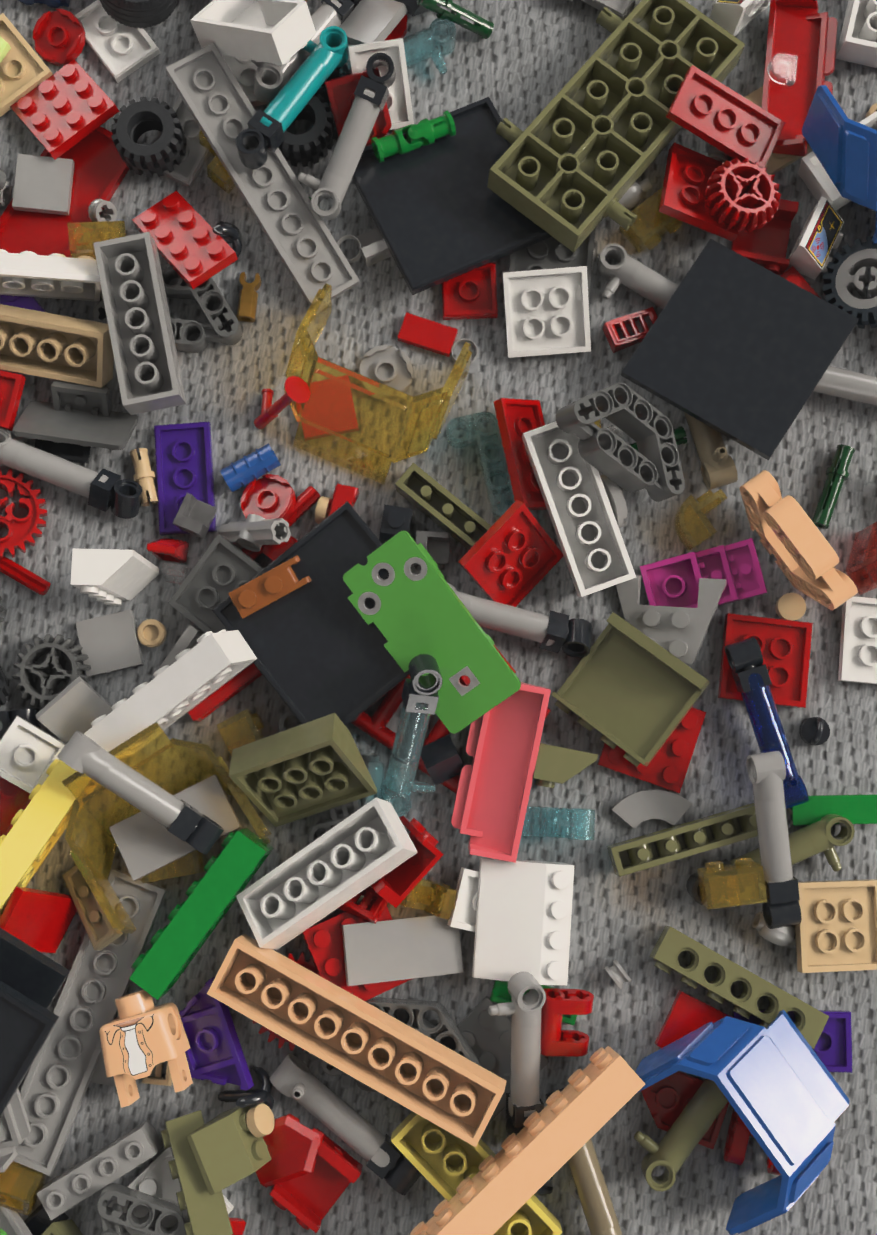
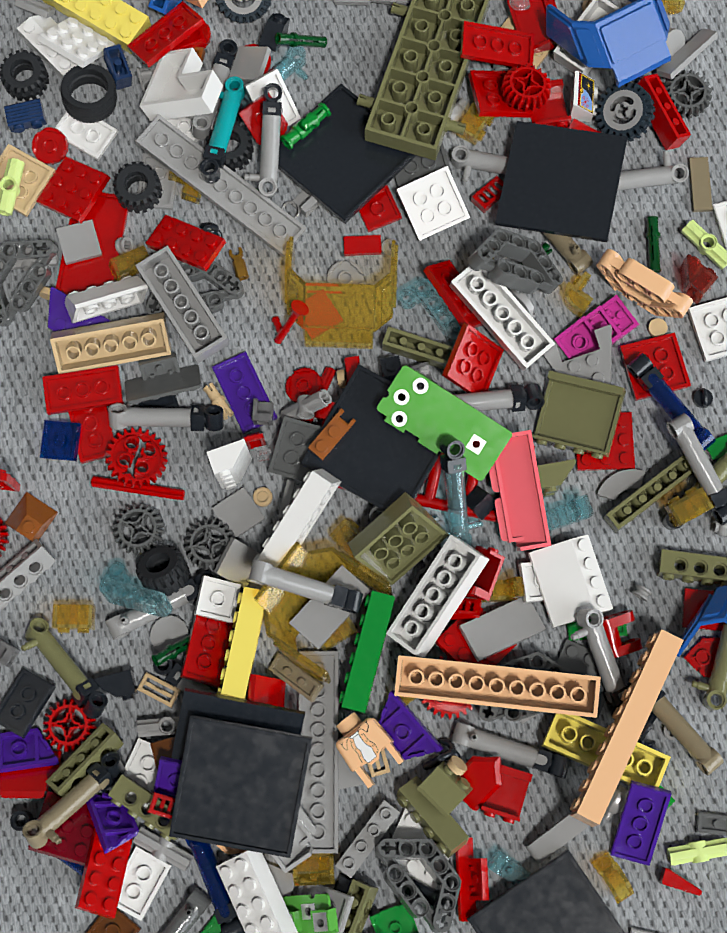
camera: 20 degrees left, 5 degrees down
(225, 693) = (327, 513): red tile -> none
(250, 467) = (284, 369): blue axle -> none

